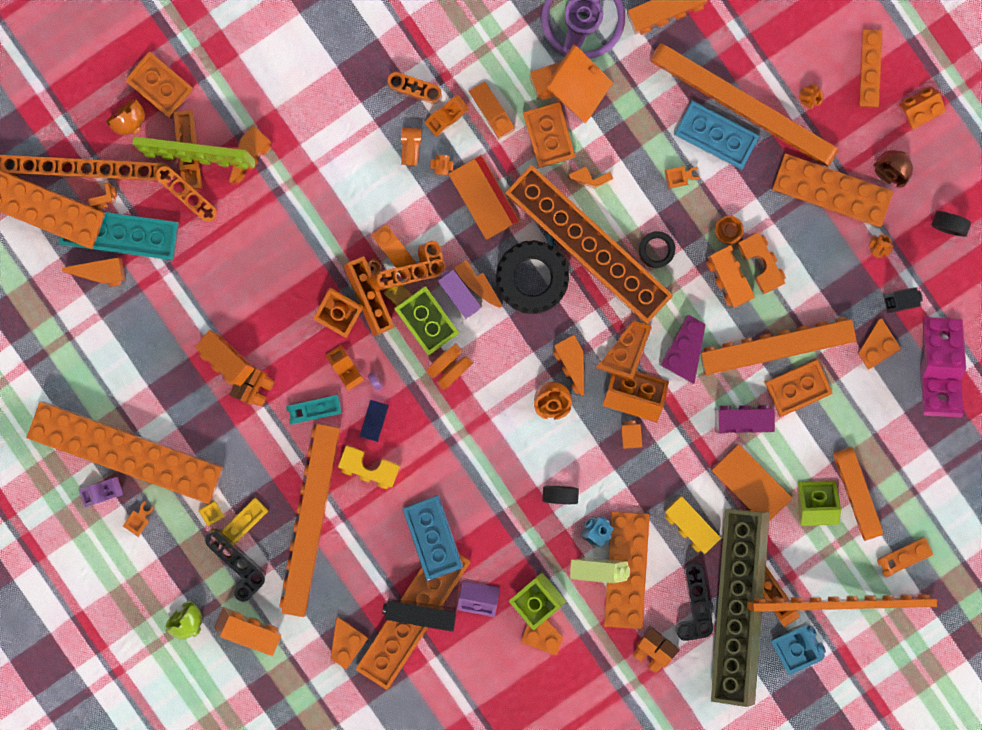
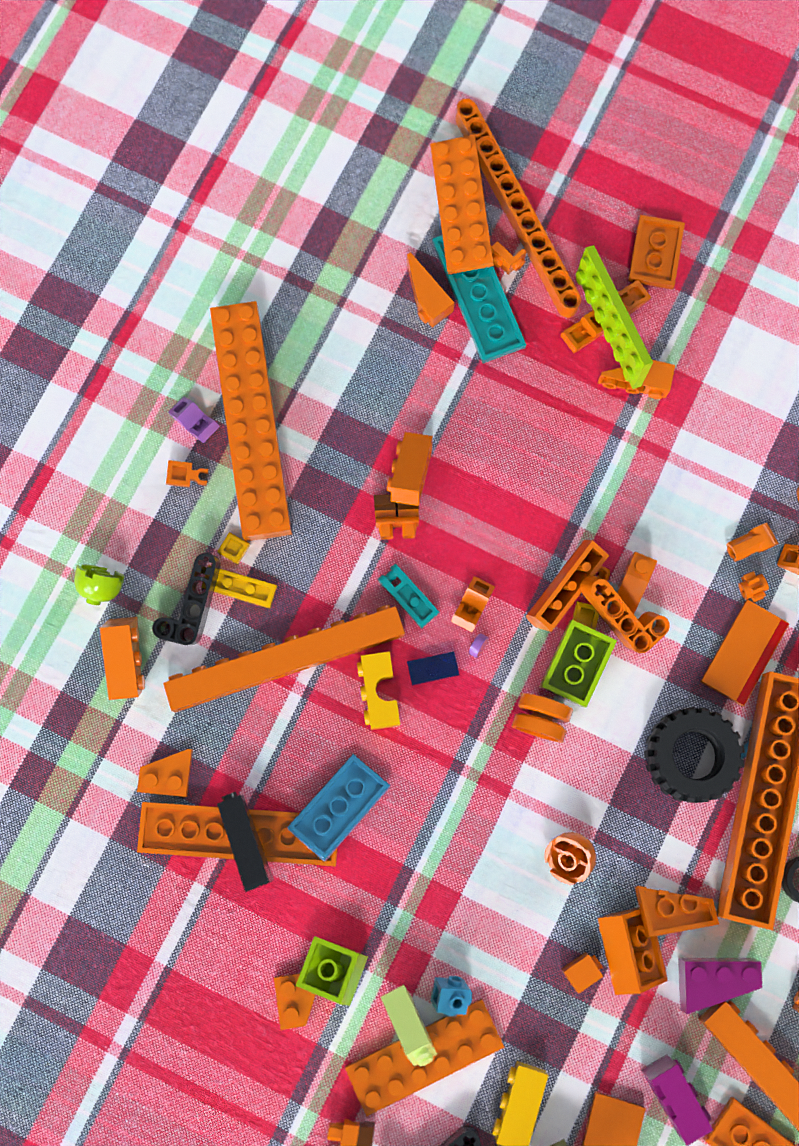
camera: 60 degrees right, 10 degrees down
(127, 119) = (603, 236): orange cylinder -> none
(184, 195) = (559, 335): orange beam -> none
(338, 312) = (531, 562): orange slope -> none
(459, 293) = (628, 683): medium lavender brick -> none
(478, 284) = (648, 698): orange slope -> none
(478, 598) = (297, 899): medium lavender panel -> none
(560, 495) = (469, 928): black tyre -> none
(572, 356) = (630, 852): orange slope -> none

